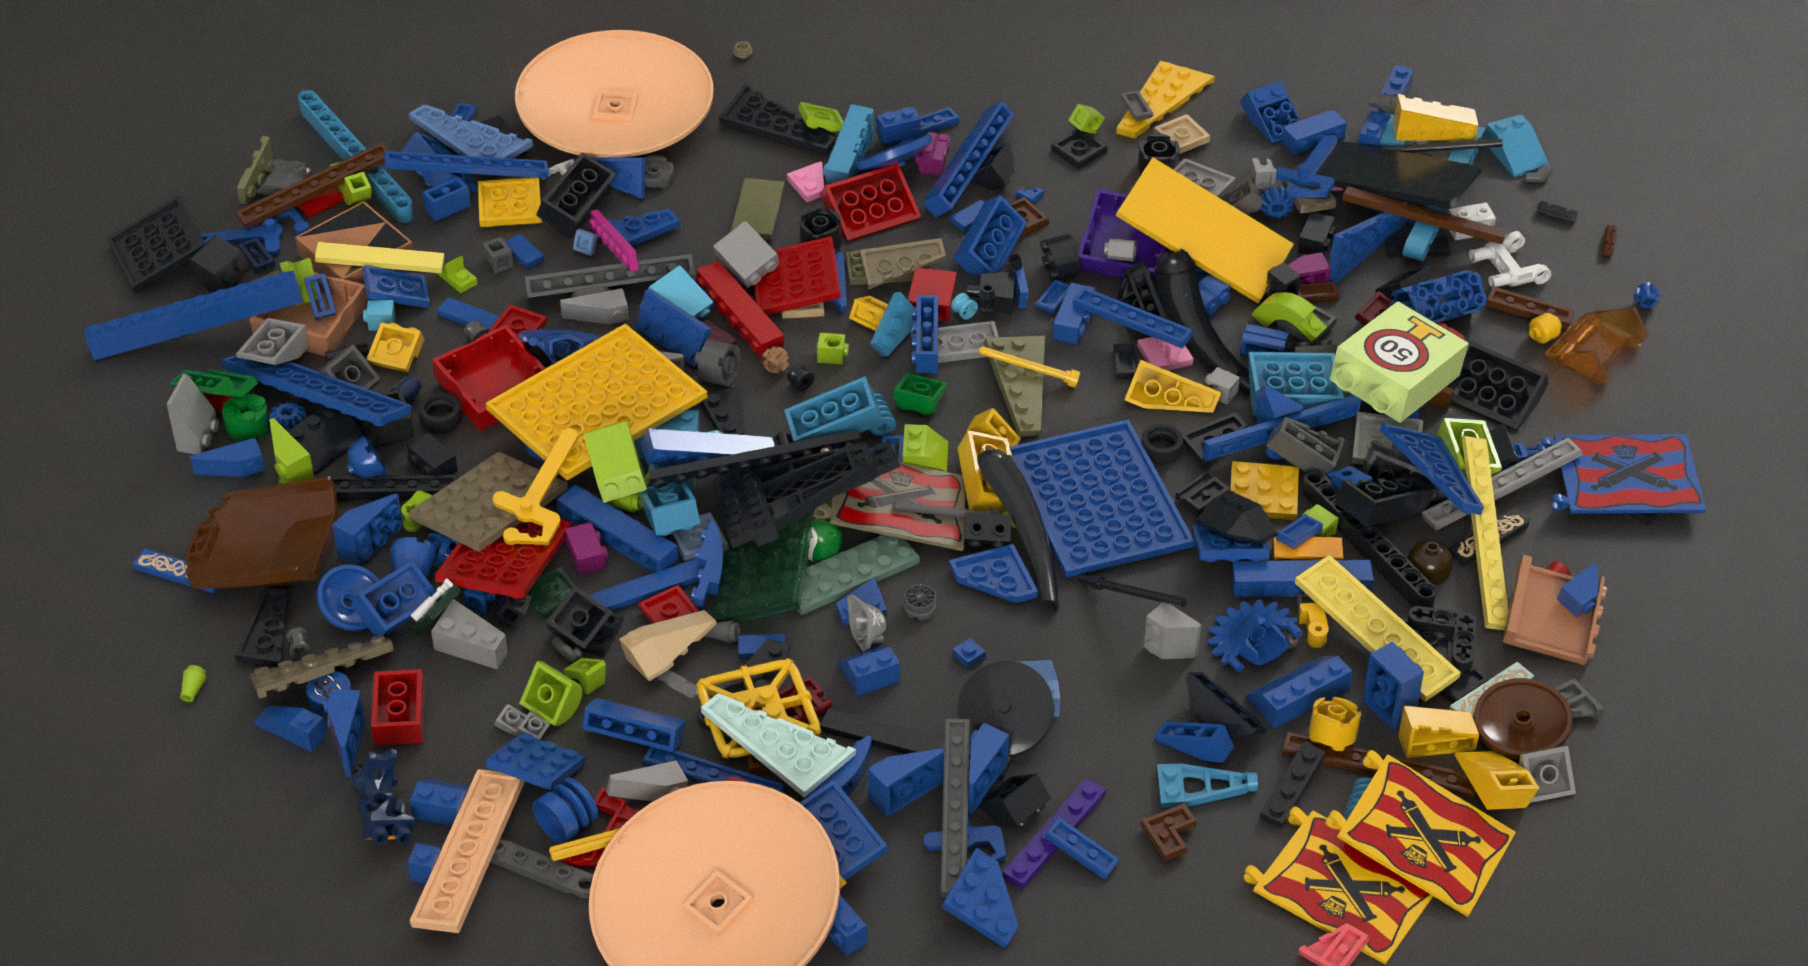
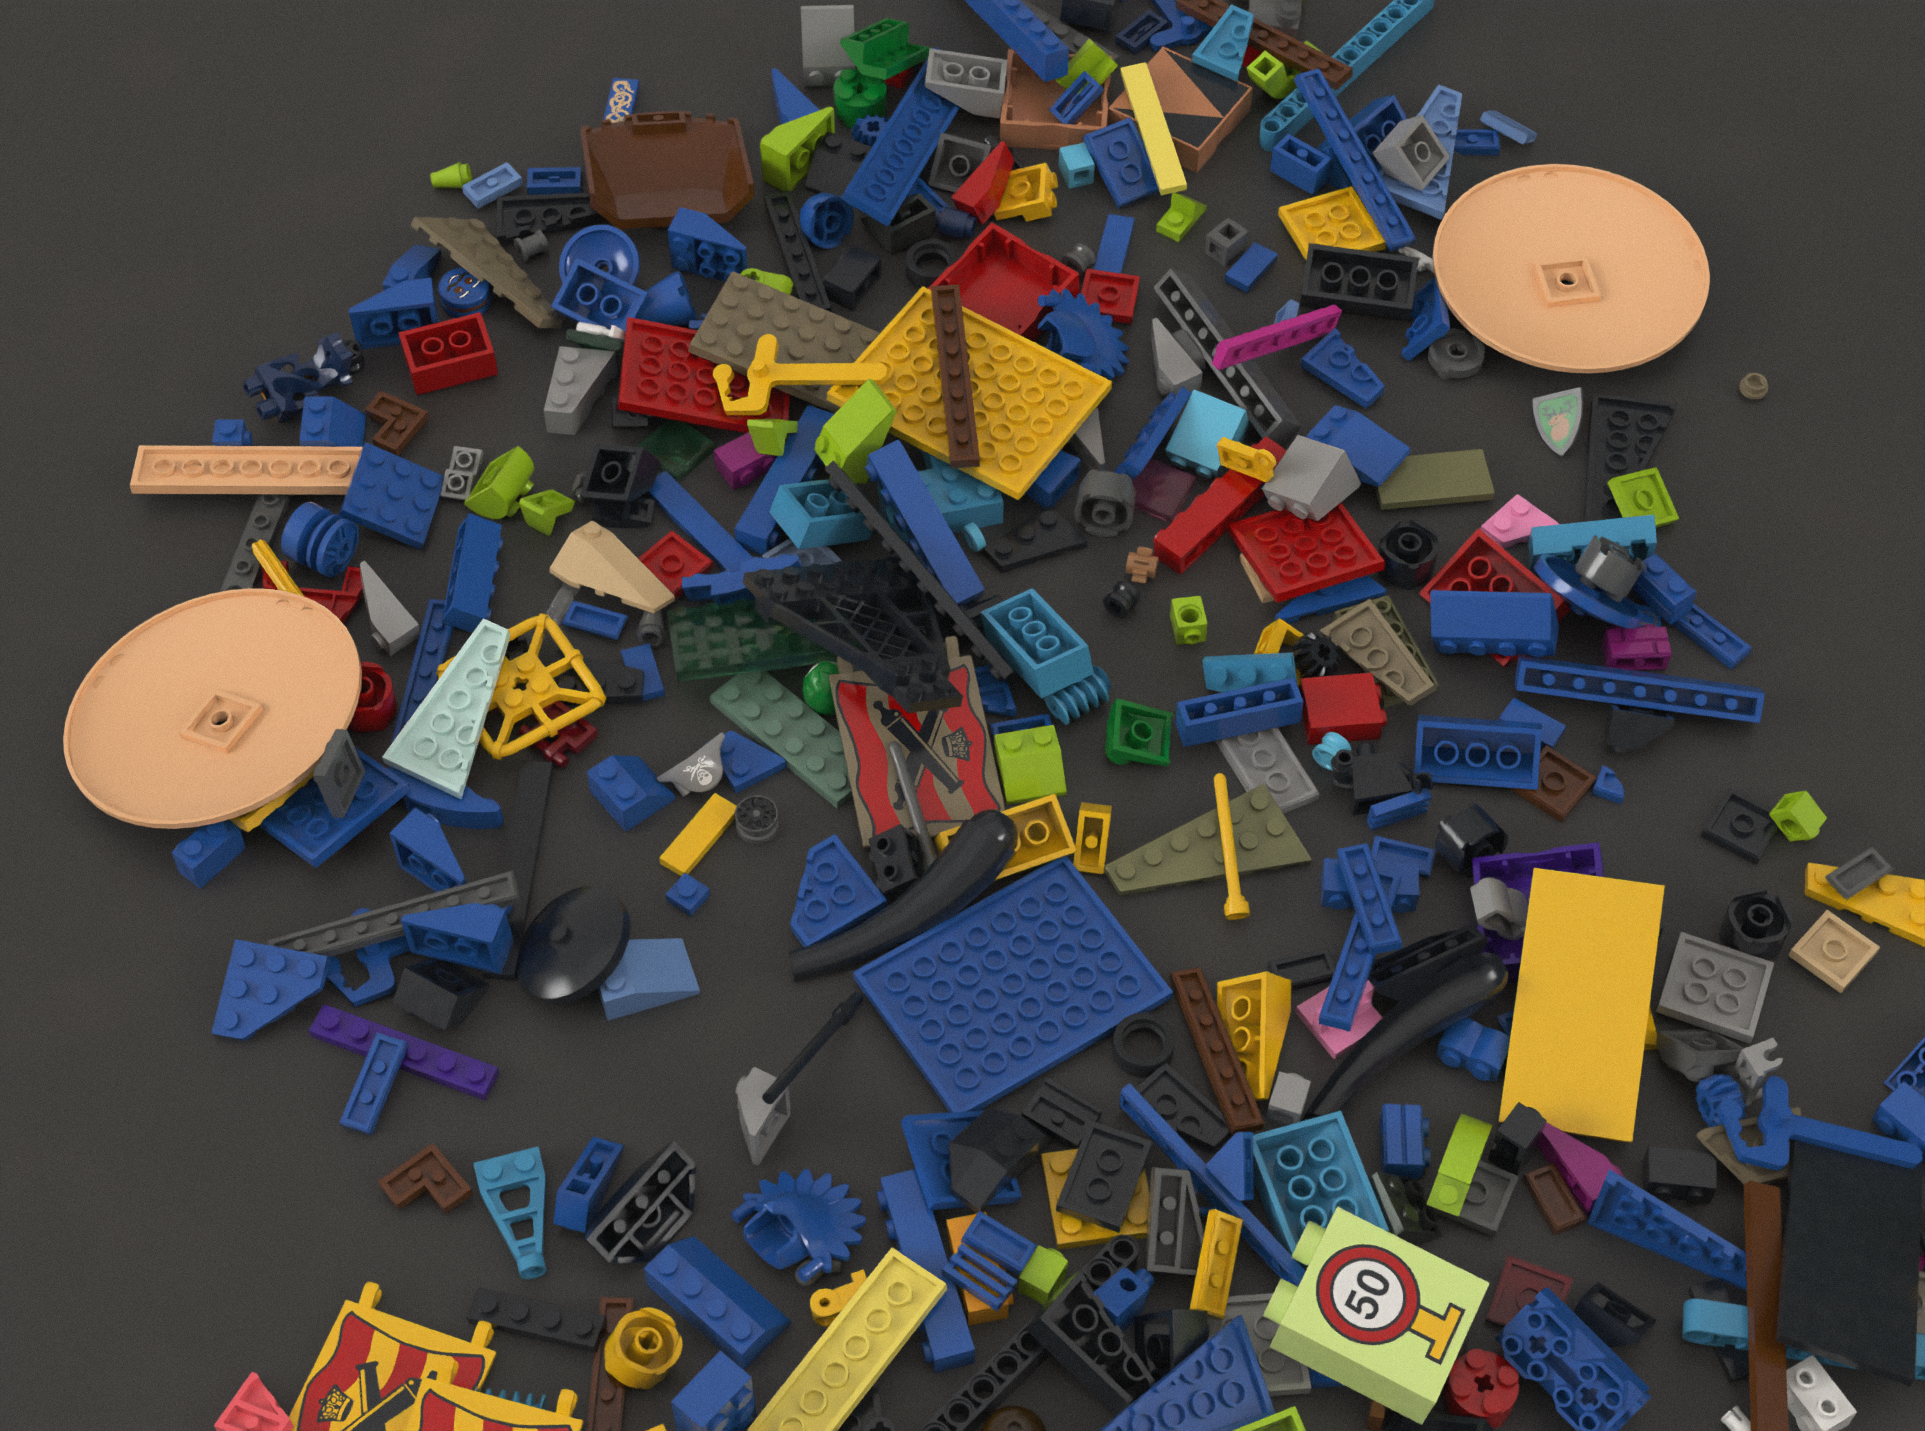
camera: 75 degrees right, 10 degrees up
(215, 658) = (492, 185): none -> medium blue plate
(229, 629) = (554, 180): none -> blue tile
(317, 202) = (1226, 43): none -> dark azure wing
(384, 362) = (985, 187): none -> red slope
(446, 752) = (399, 419): none -> reddish brown plate
(459, 96) = (1508, 127): none -> medium blue tile
(474, 136) = (1412, 153): none -> light grey slope
(585, 514) = (770, 434): none -> lime slope
(587, 397) = (955, 377): none -> reddish brown plate
(702, 664) = (594, 620): none -> blue tile
(713, 227) = (1368, 446): none -> blue slope
(723, 275) = (1246, 459): none -> yellow hinge
(736, 135) = (1559, 418): none -> shield
(824, 807) = (339, 773): none -> dark grey plate
(884, 135) = (1608, 567): none -> dark grey brick
(884, 290) = (1315, 656): none -> black gear
(903, 200) = (1493, 623): none -> blue slope
(920, 637) = (699, 835): none -> yellow tile
(1099, 302) = (1369, 899): none -> blue tile
(1177, 409) = (1216, 1051): none -> reddish brown tile
(1261, 474) = (1104, 1176): none -> black plate
(1318, 542) = (956, 1260): none -> blue tile
(1340, 432) = (1216, 1264): none -> yellow tile

